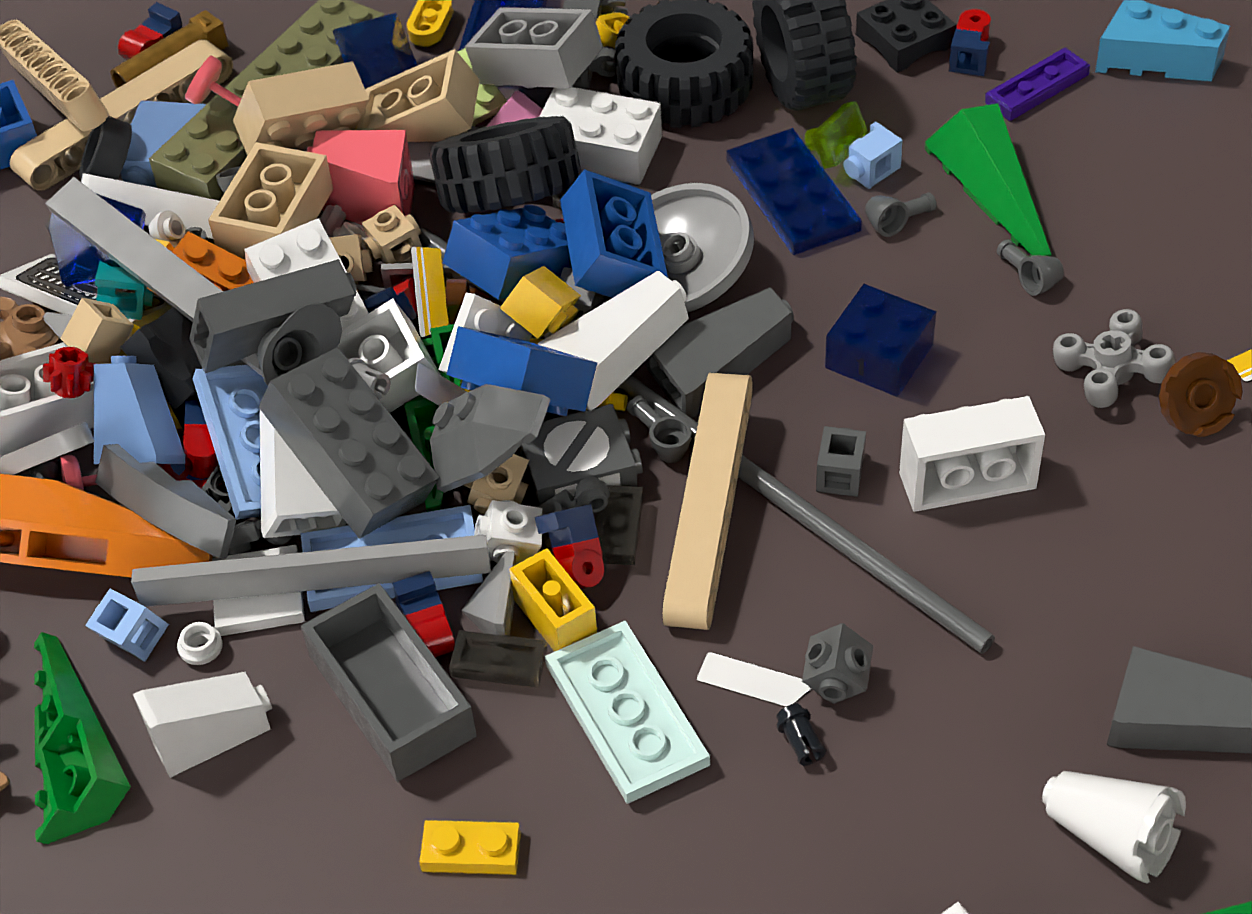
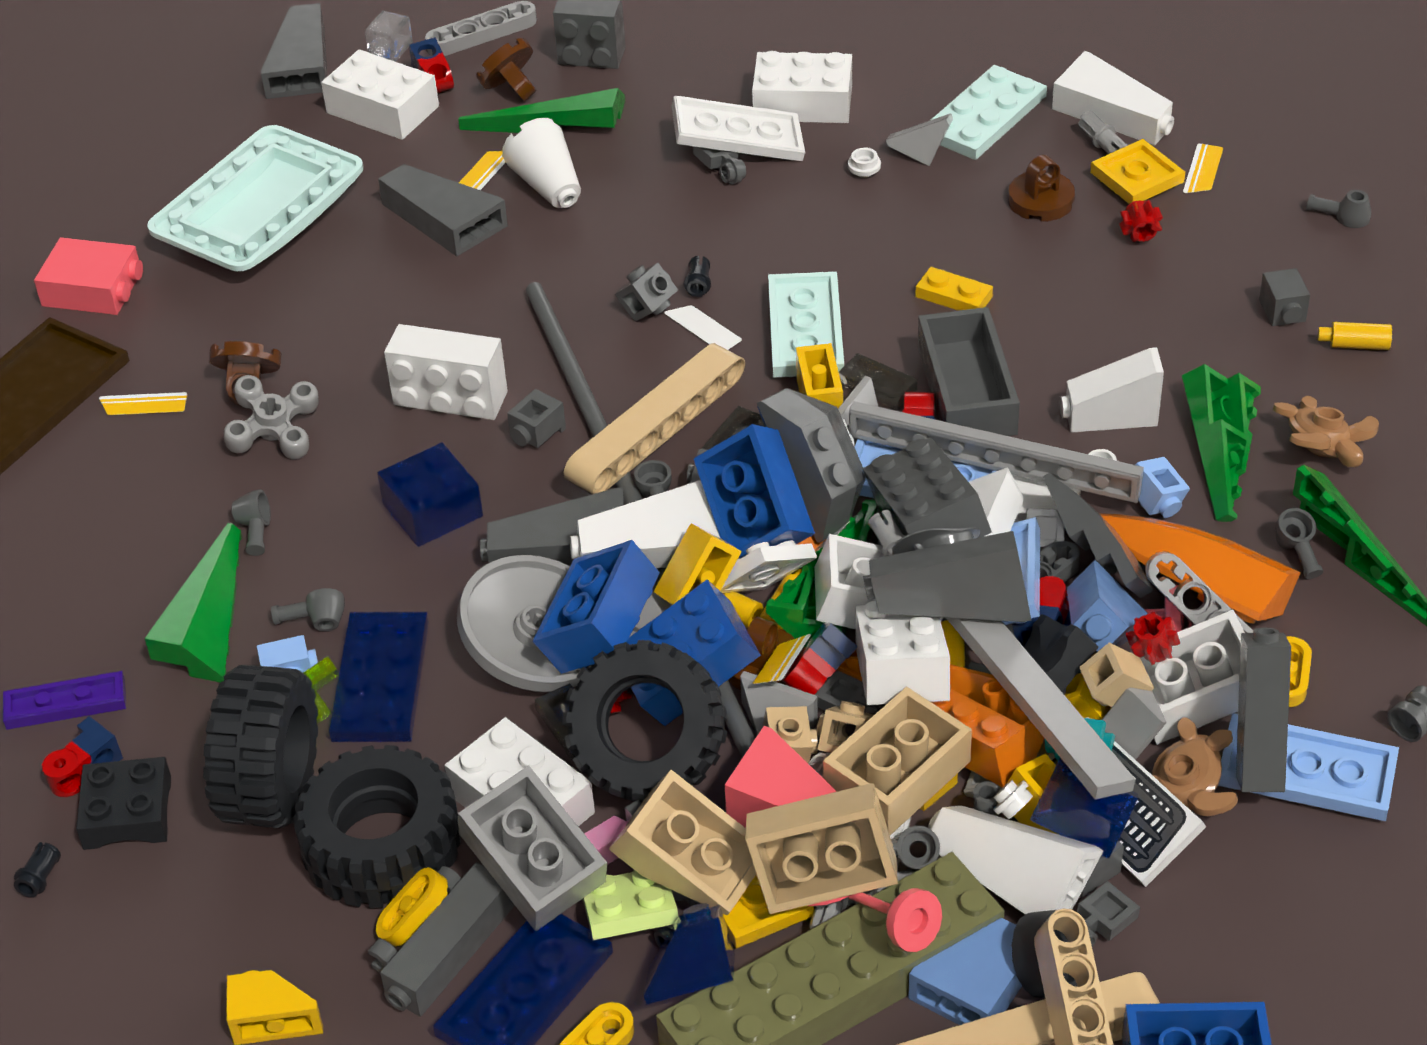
camera: 155 degrees left, 5 degrees down
(1215, 823) = (484, 170): none -> yellow sticker

